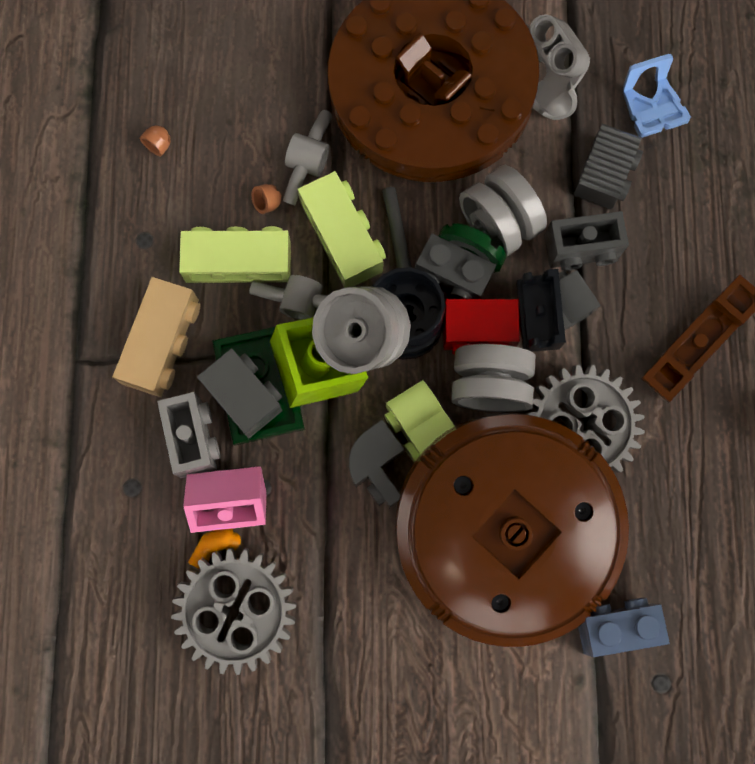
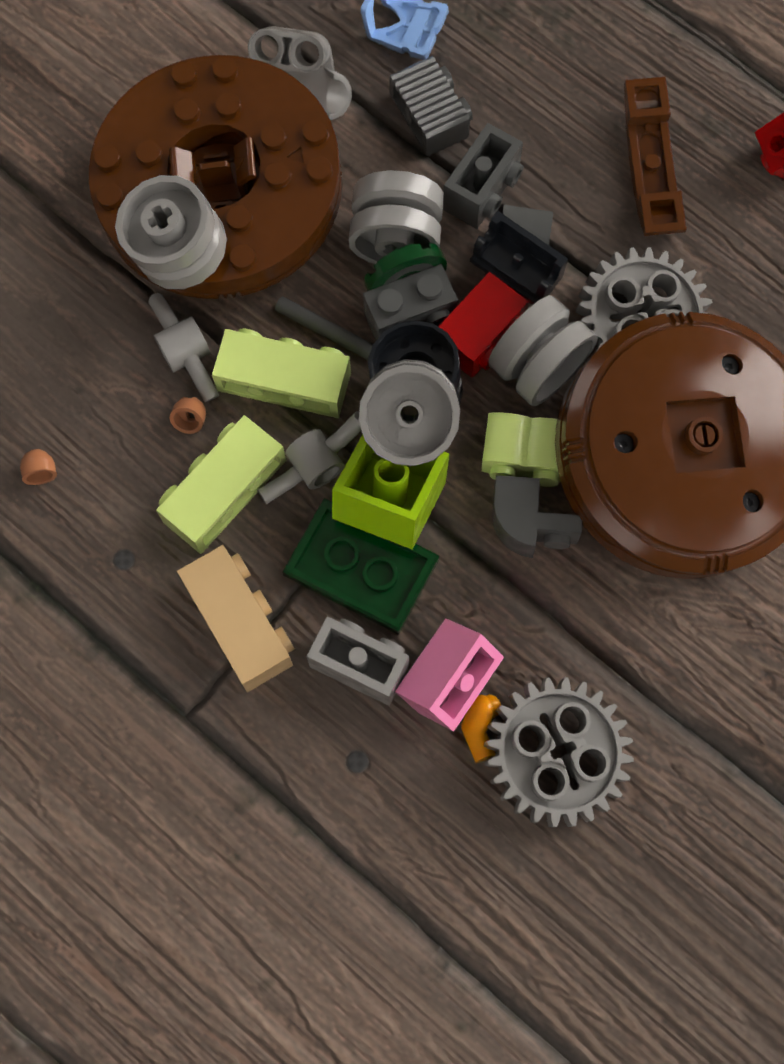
camera: 45 degrees left, 5 degrees down
(241, 393) = (362, 577): dark grey brick -> none
(356, 80) = (171, 232): none -> light grey wheel

